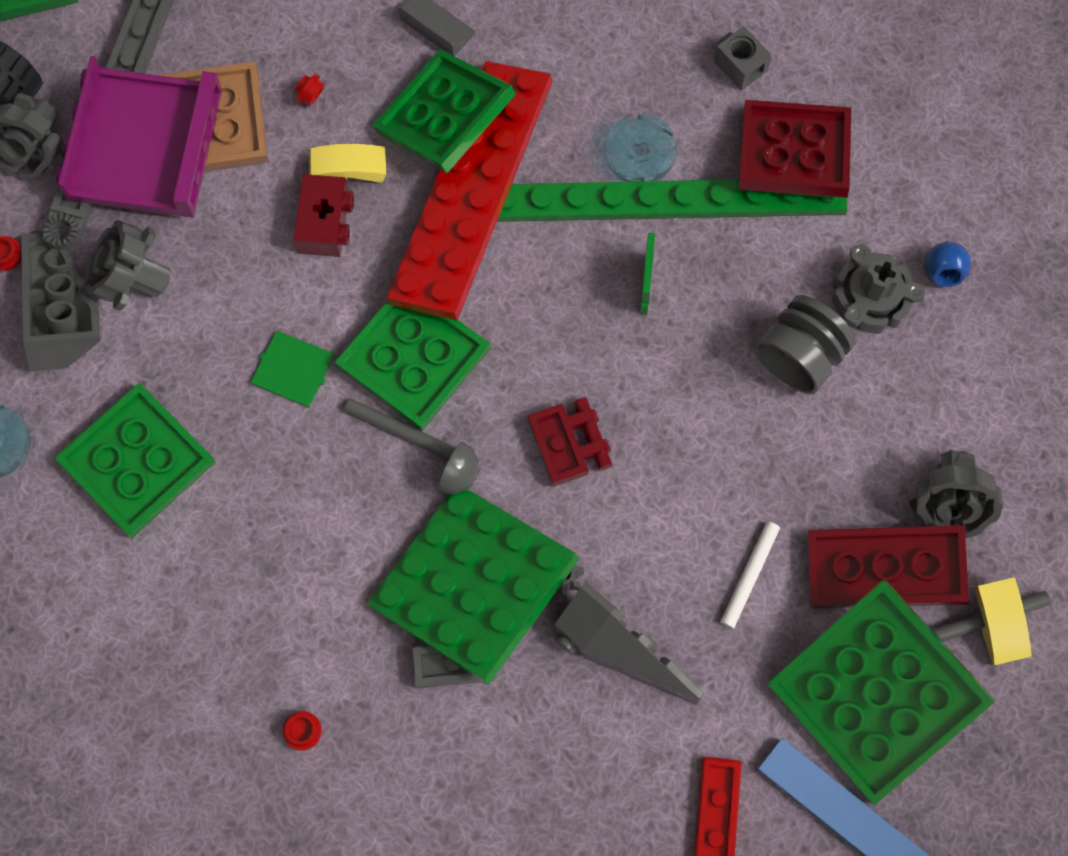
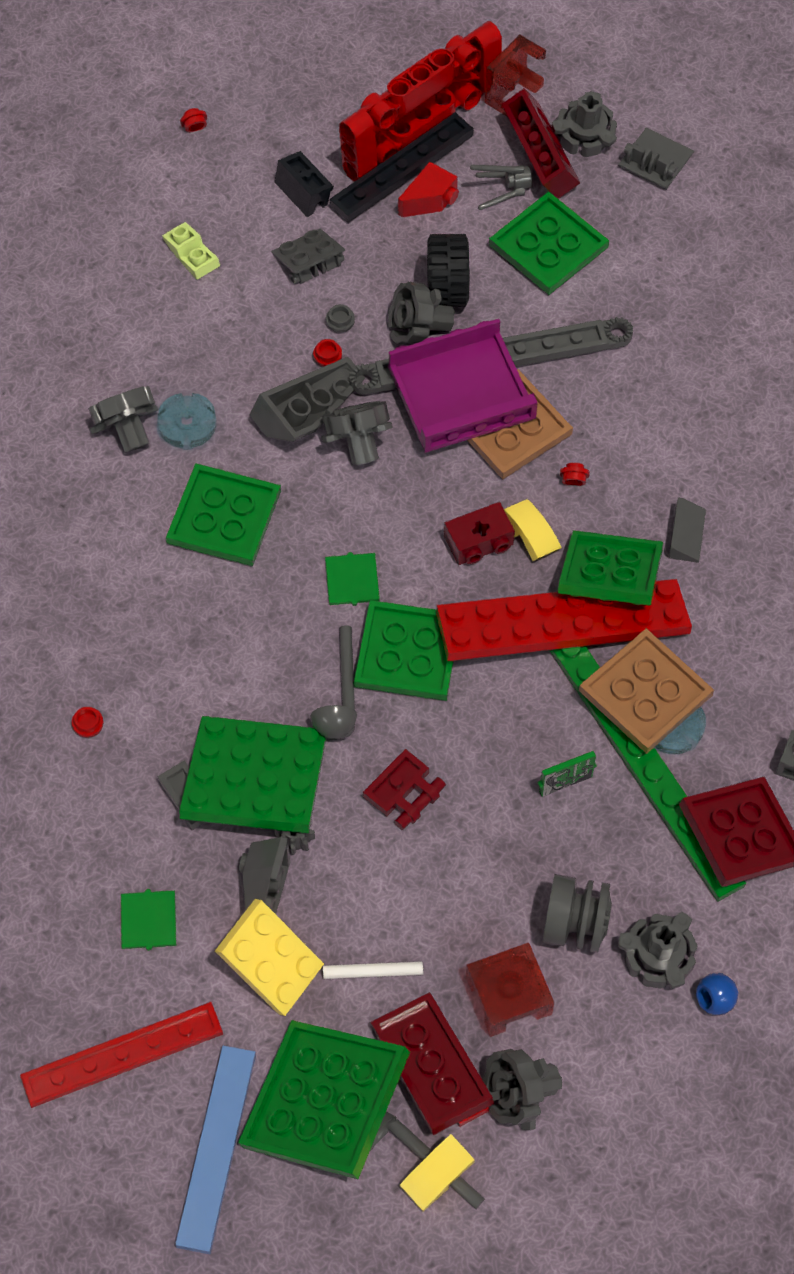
camera: 60 degrees right, 10 degrees down
(571, 777) = (148, 919): none -> green piece
(600, 152) = (646, 690): none -> medium nougat plate
(697, 670) = (269, 957): none -> light yellow plate
(847, 450) = (509, 987): none -> clear red panel

